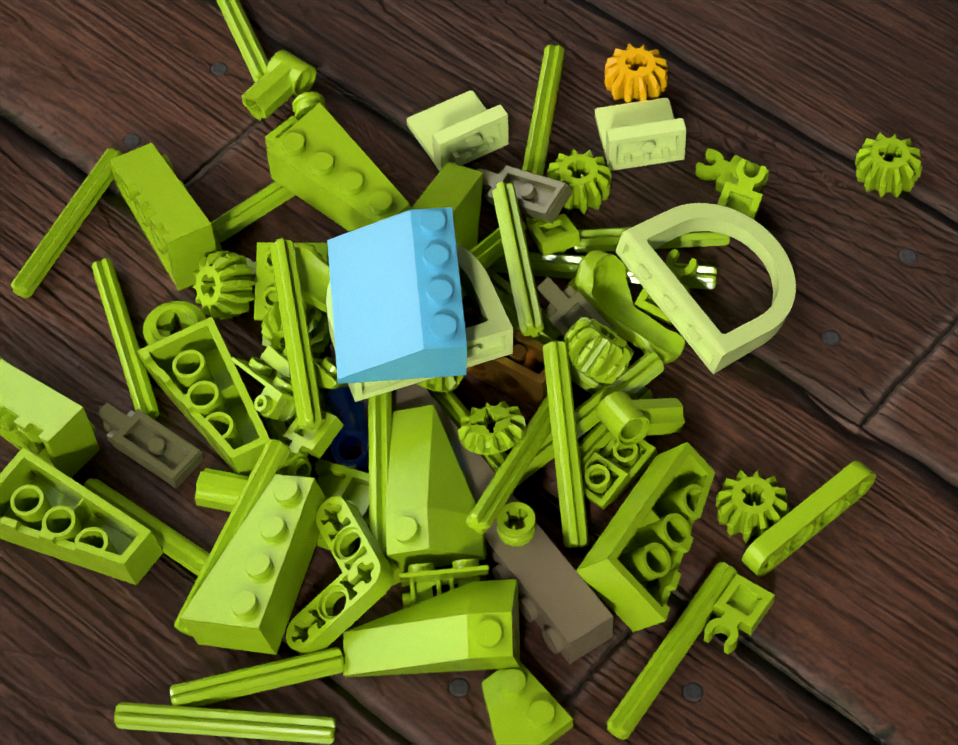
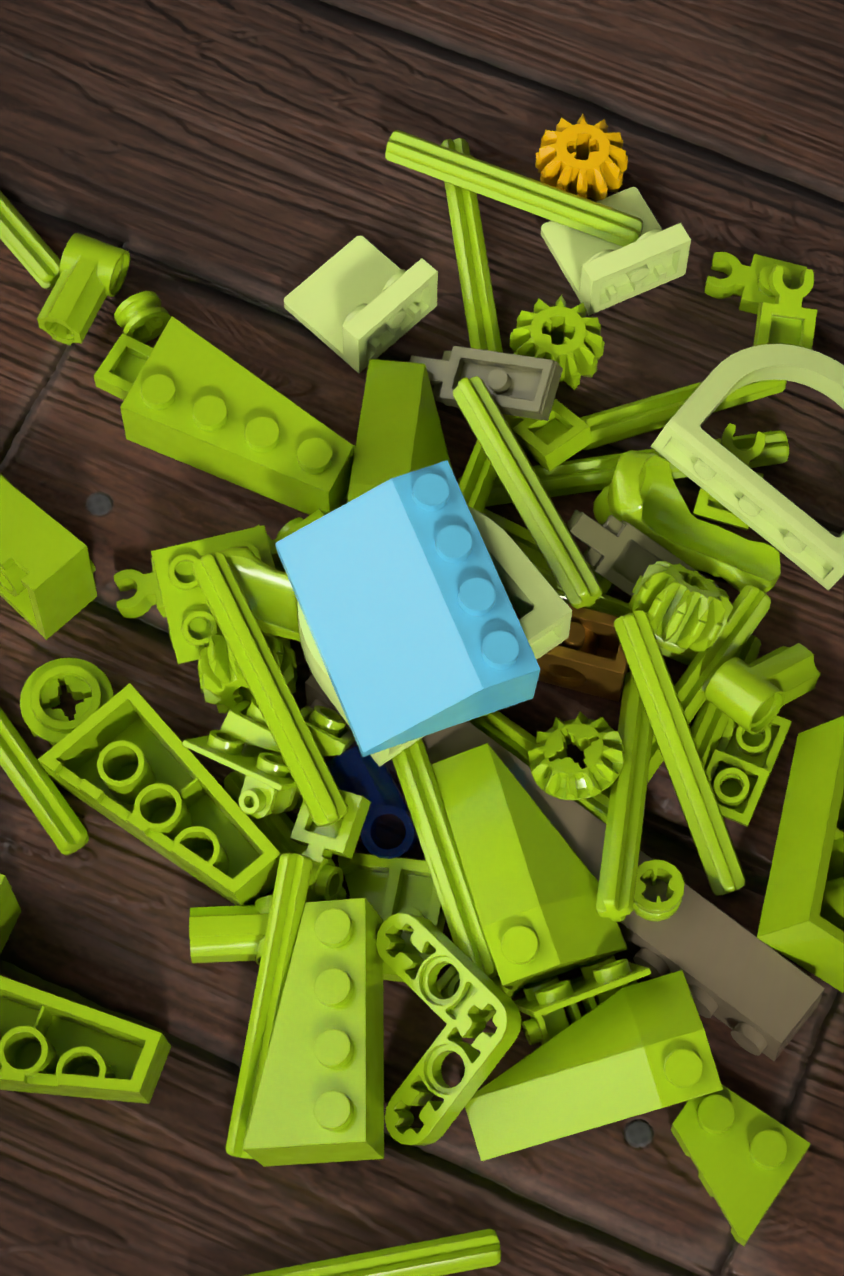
camera: 20 degrees left, 10 degrees up
(150, 444) = (95, 889): olive hinge -> none
(170, 541) = (179, 1028): lime axle -> none
(224, 285) = (121, 623): lime gear -> none
(250, 210) = (110, 491): lime axle -> none
(257, 678) = (366, 1198): lime axle -> none
(579, 78) = (513, 189): none -> lime axle

